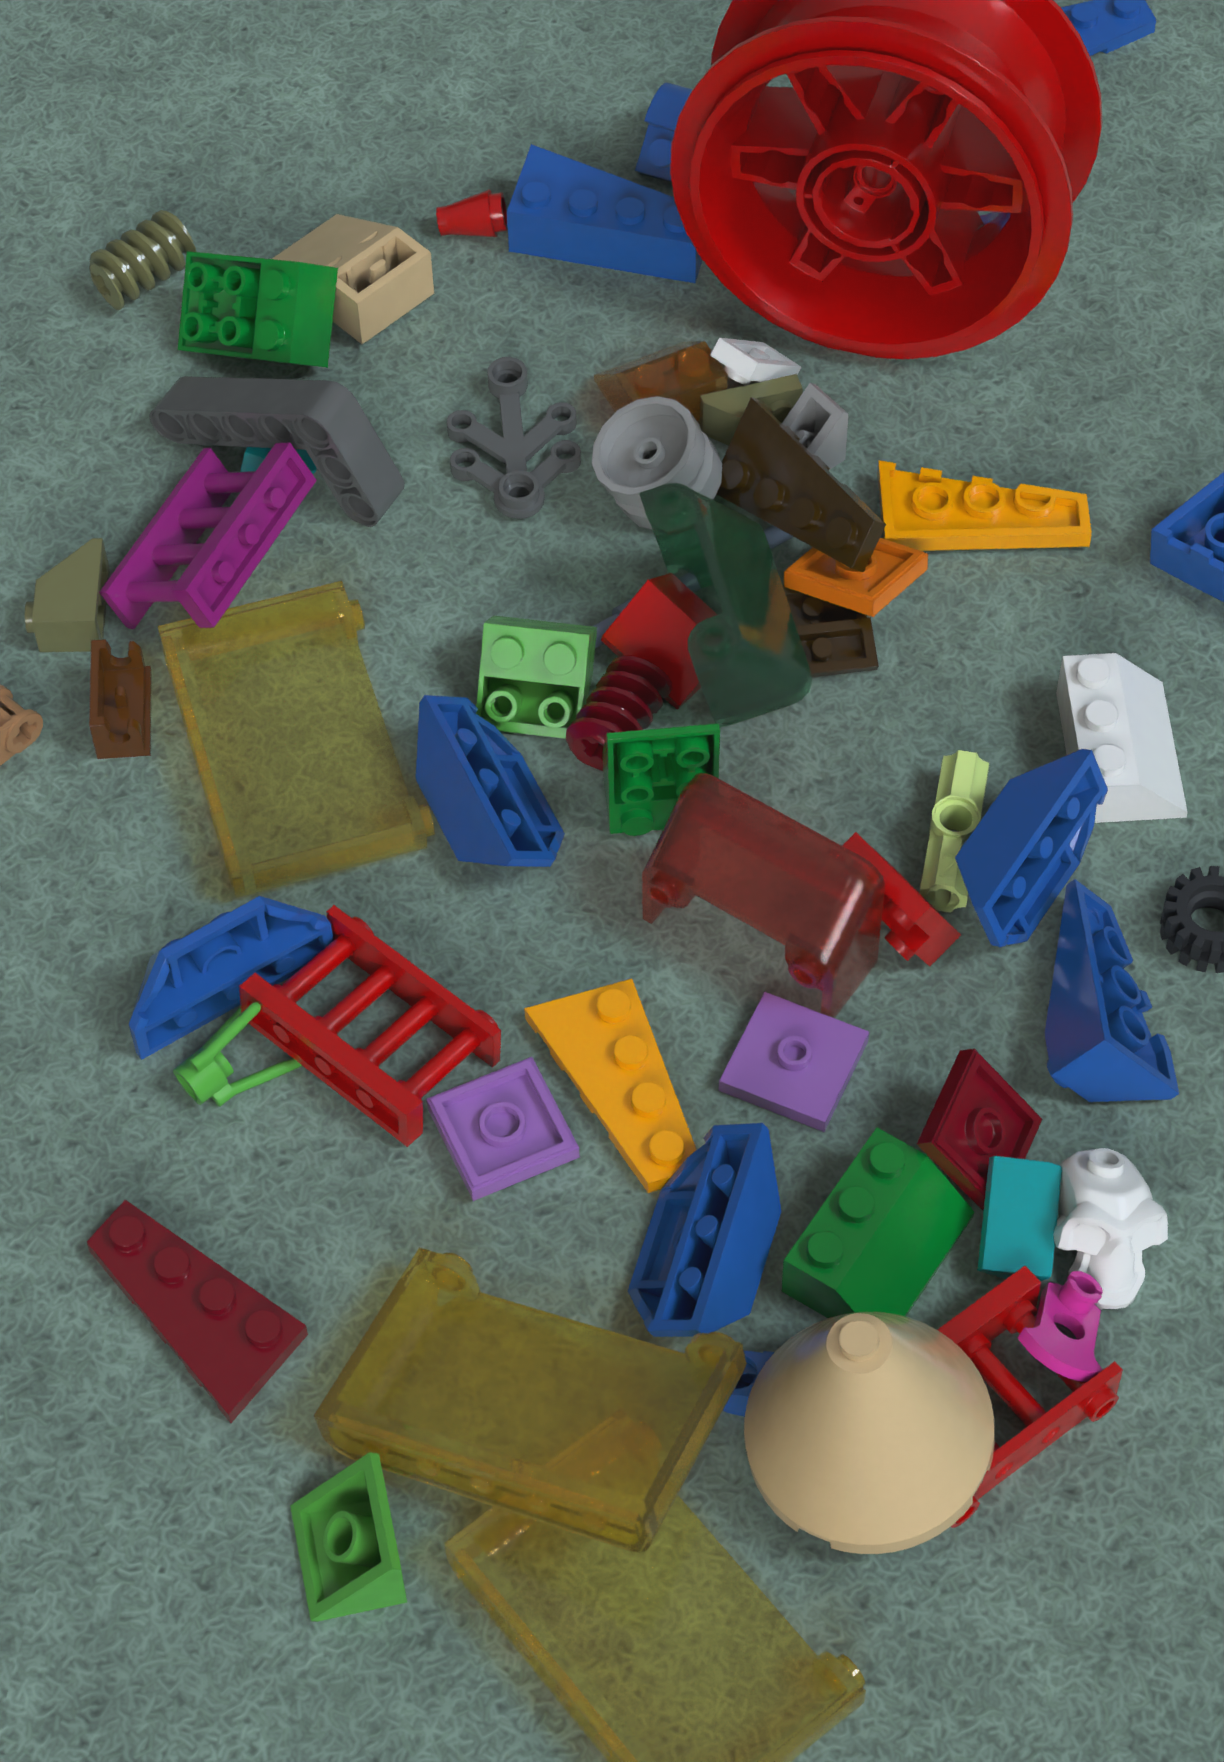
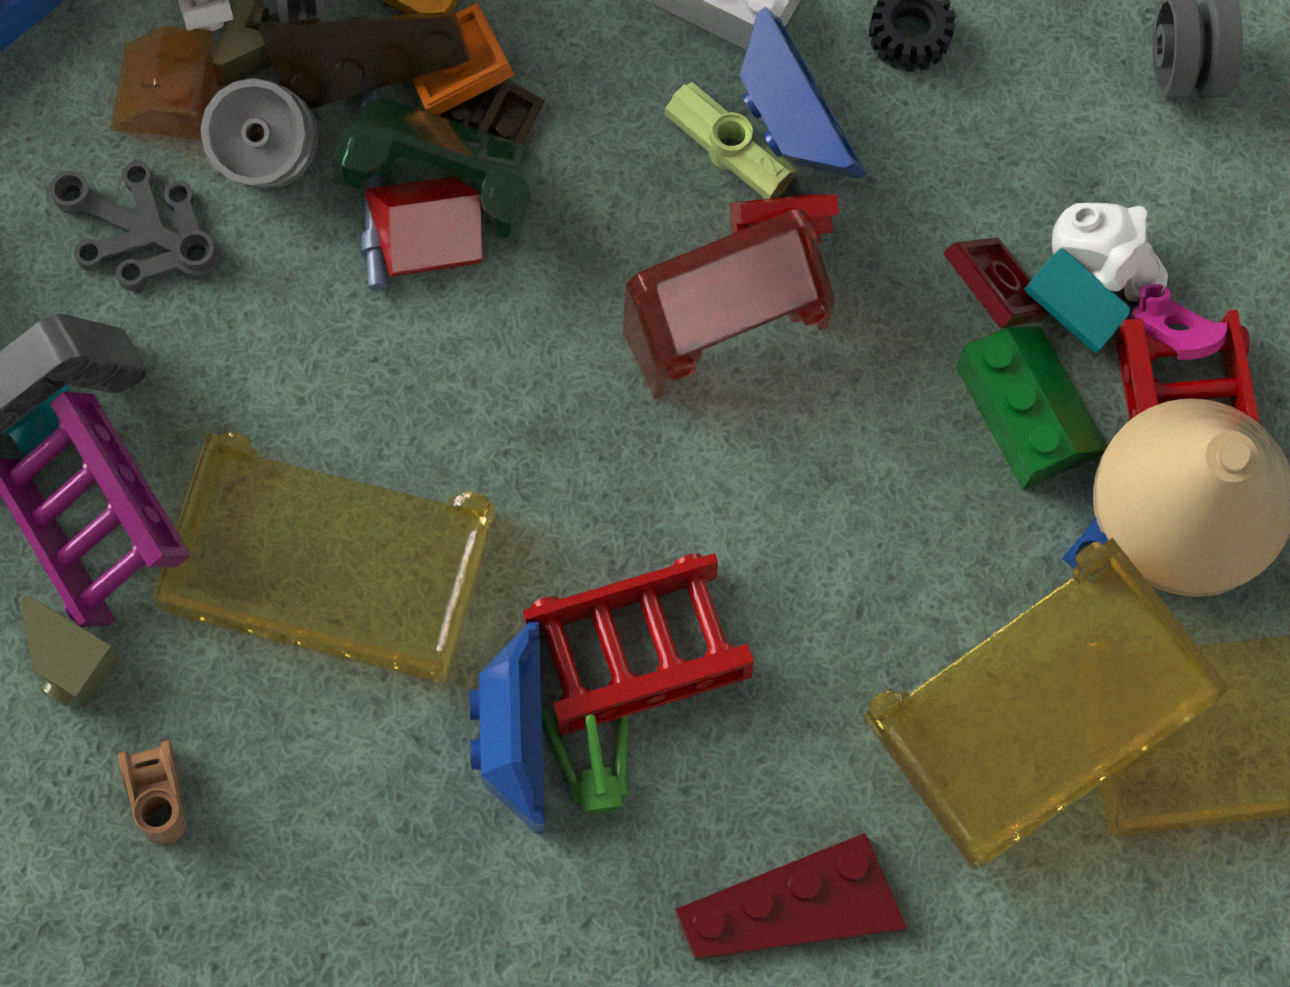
camera: 65 degrees left, 15 degrees up
(120, 702) = (193, 670): reddish brown hinge -> none
(348, 1543) = (1063, 895): bright green slope -> none
(482, 788) = (486, 445): blue wedge -> none
(502, 1128) = (783, 600): medium lavender plate -> none
(534, 674) = (390, 342): bright green slope -> none
(620, 703) = (467, 307): dark red piece -> none
(620, 1075) = (770, 490): light orange wing -> none
(649, 771) = (564, 307): green slope -> none
(709, 1235) = (970, 517): blue wedge -> none
(794, 1061) = (847, 369): medium lavender plate -> none
(1095, 1011) = (959, 159): blue wedge -> none

